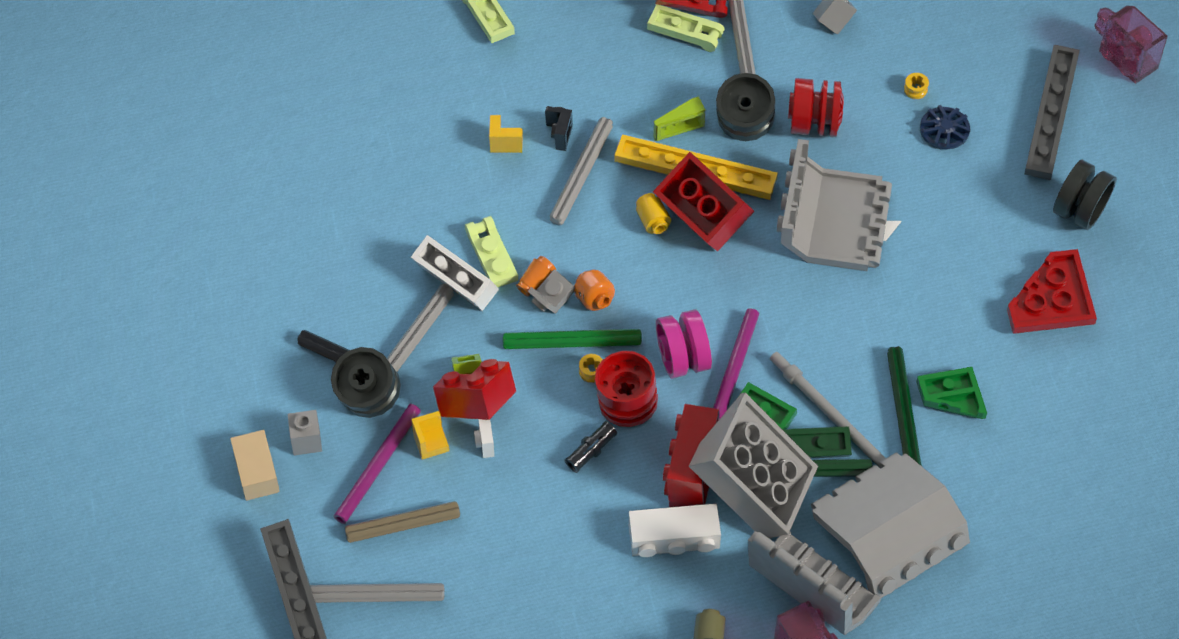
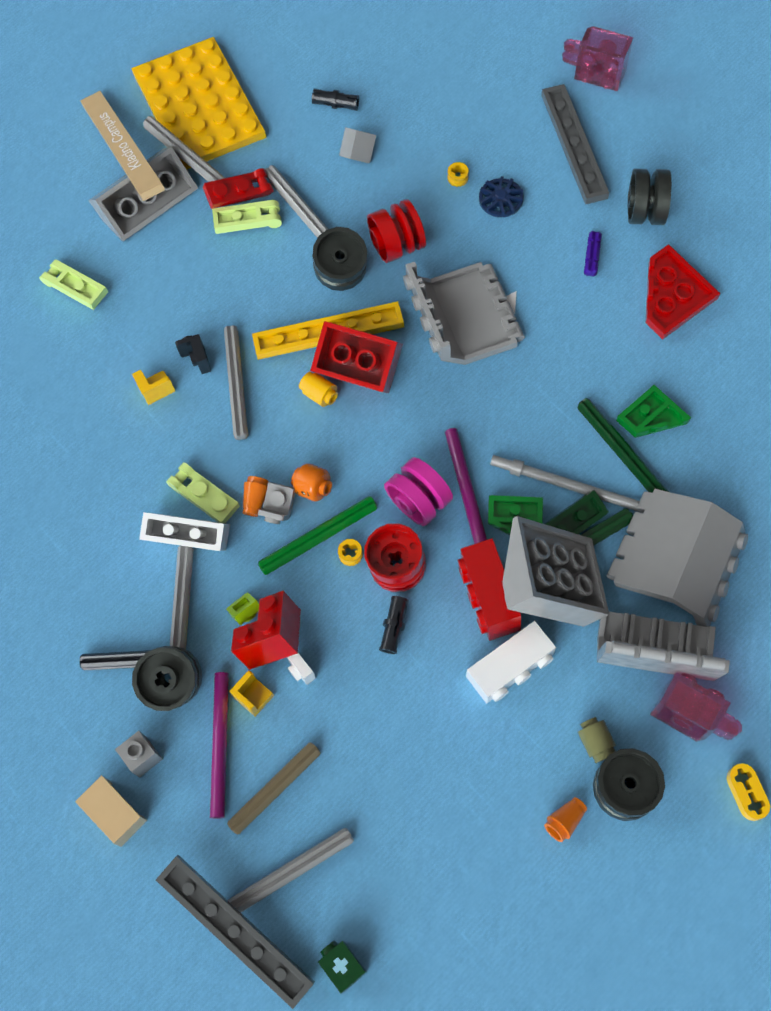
camera: 25 degrees left, 10 degrees up
(680, 120) = (293, 294): lime slope -> none
(998, 222) = (592, 253): none -> dark purple axle

